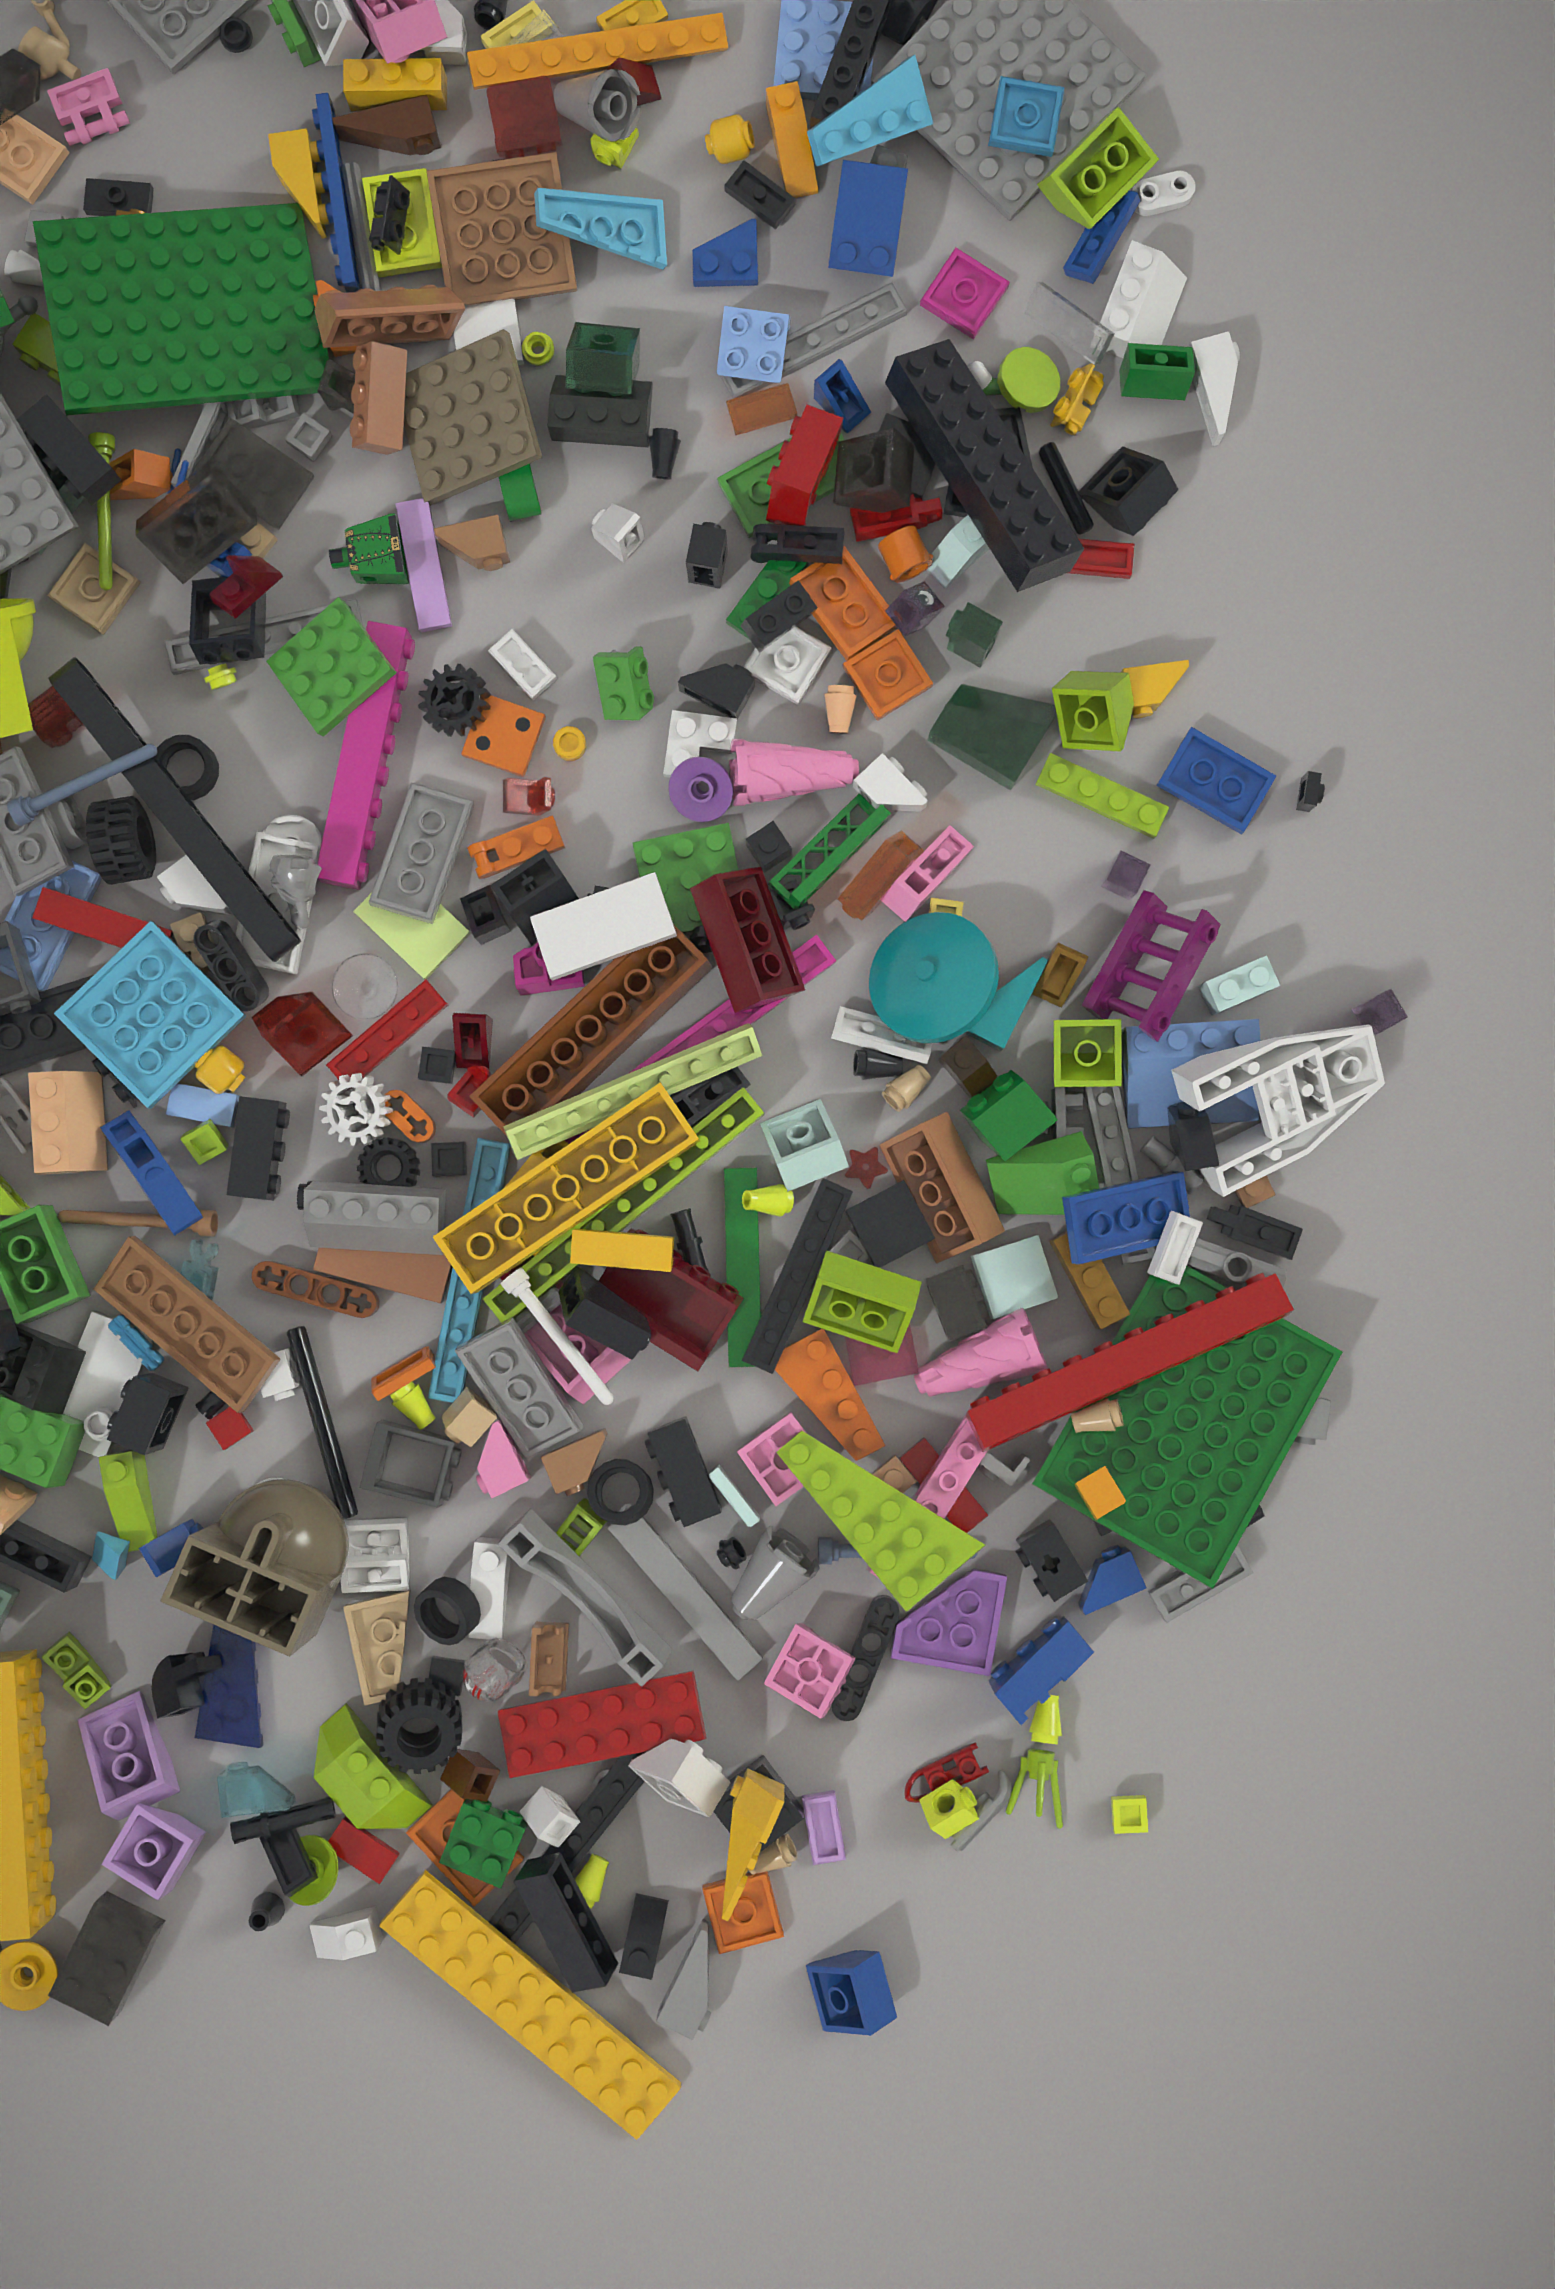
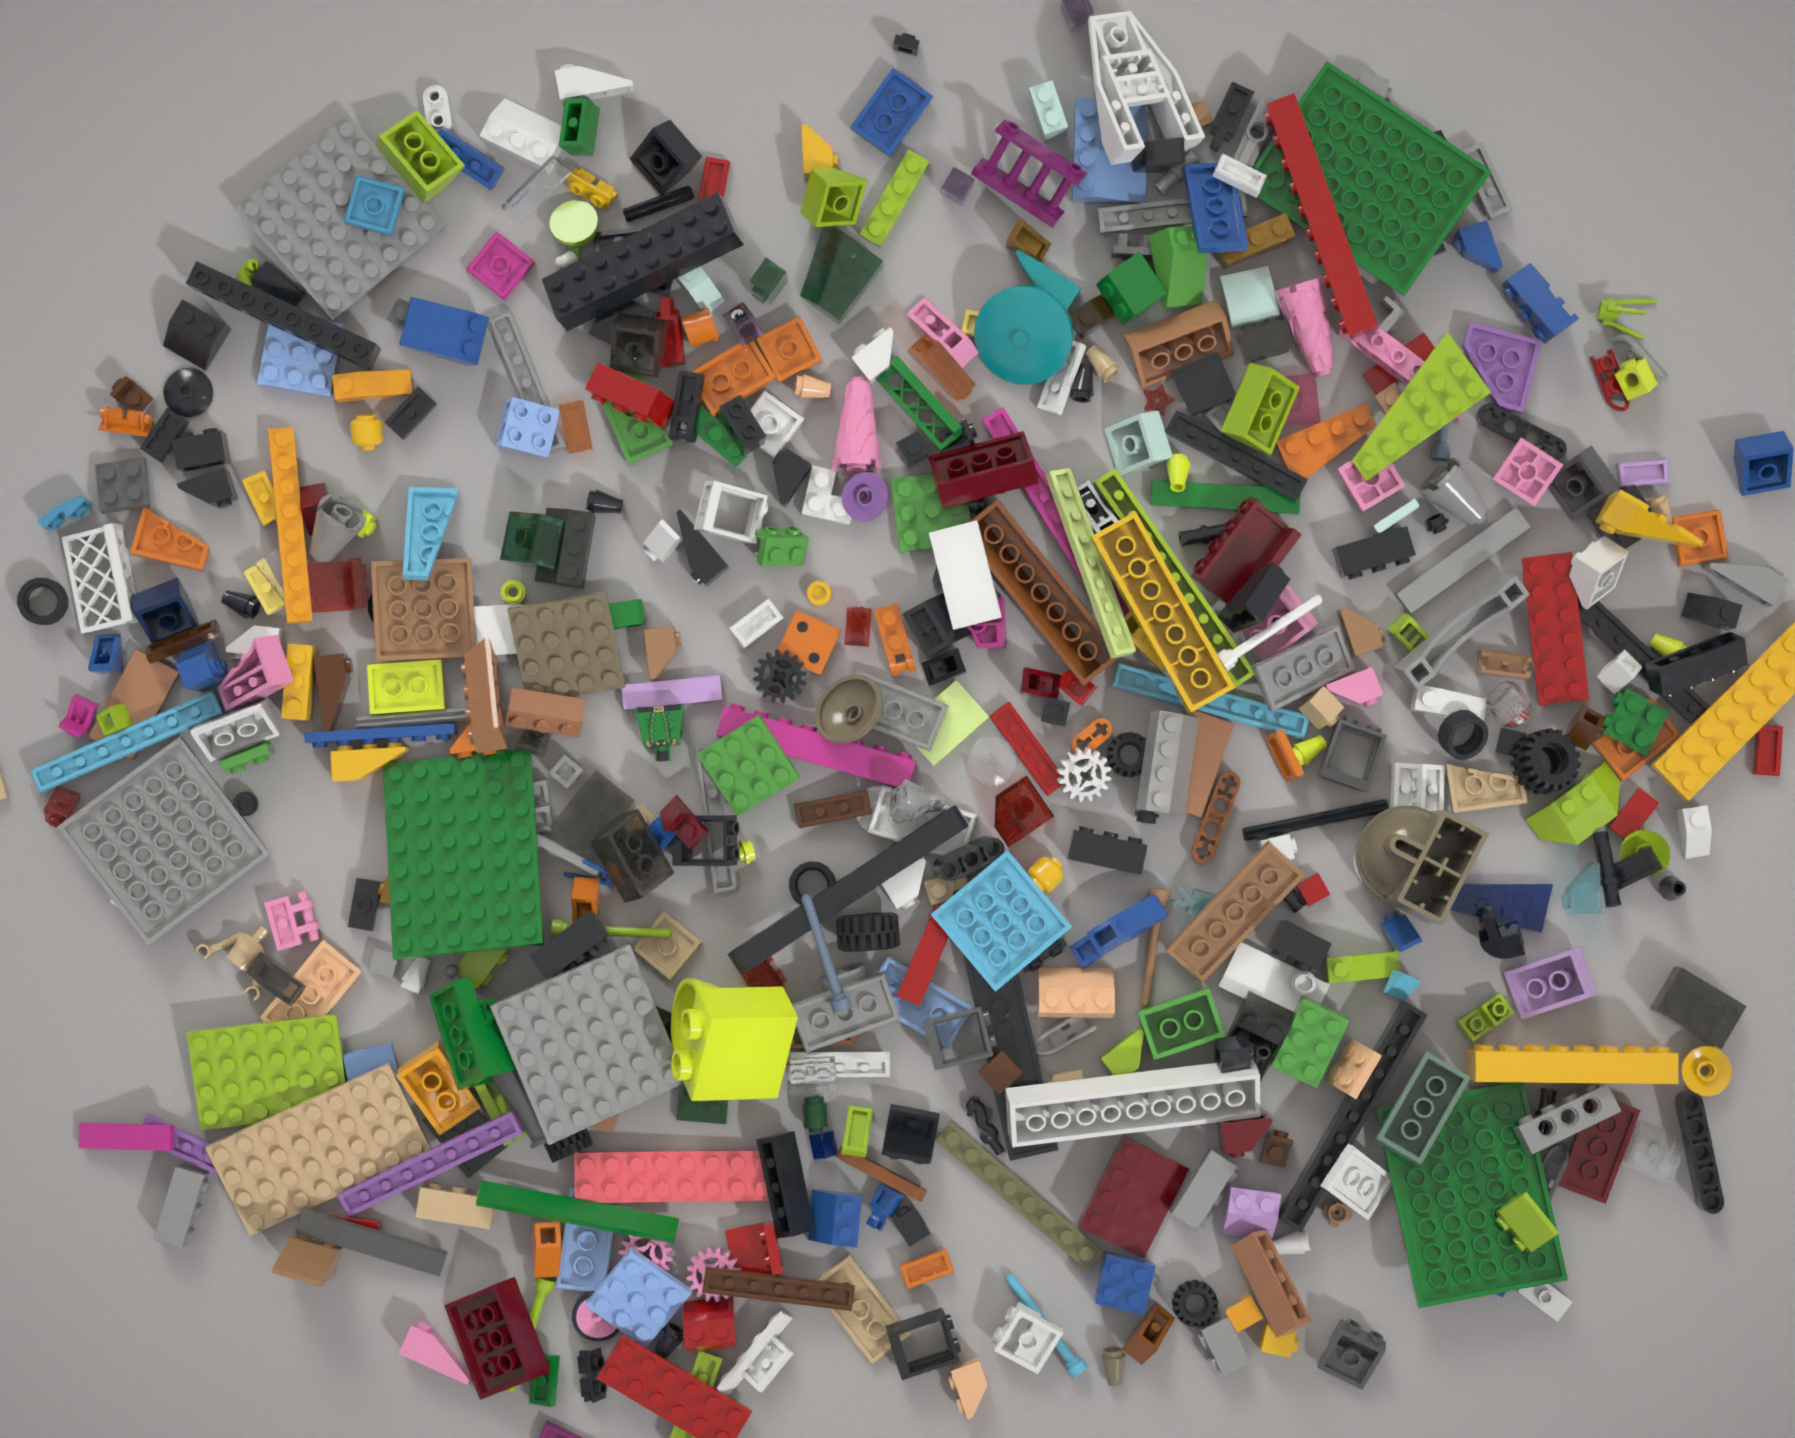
camera: 85 degrees left, 0 degrees up
(136, 1342) = (1245, 952): dark azure axle -> none
(153, 1849) = (1620, 965): lavender slope -> none
(202, 1105) = (1070, 891): light blue tile -> none
(204, 1141) = (1098, 891): lime plate -> none
(286, 785) = (833, 809): none -> reddish brown tile
(392, 203) = (416, 694): black hinge -> none
(411, 788) = (848, 709): none -> dark tan dish
(449, 1159) = (1126, 710): black tile -> none
(461, 2027) = (1768, 751): none -> red tile
(597, 1481) = (1367, 605): black tyre -> none
(608, 581) = (701, 556): none -> black slope
(622, 1250) = (1209, 579): yellow tile -> none
(667, 581) = (709, 504): none -> white window
(707, 554) = (688, 474): black brick -> none
(728, 258) = (457, 441): blue wing -> none
(803, 1748) = (1582, 482): none -> dark grey slope
(840, 396) = (575, 364): blue slope -> none
(873, 116) = (370, 318): medium azure wing -> none
(1046, 1721) = (1578, 303): neon yellow cone -> none
(1048, 1541) = (1470, 278): black brick -> none
(1087, 1053) = (1089, 226): lime slope -> none
(1098, 1417) = (1359, 240): tan cone -> none
(1100, 1493) = (1416, 245): light orange panel -> none
(1129, 1814) = (1650, 249): neon yellow plate -> none

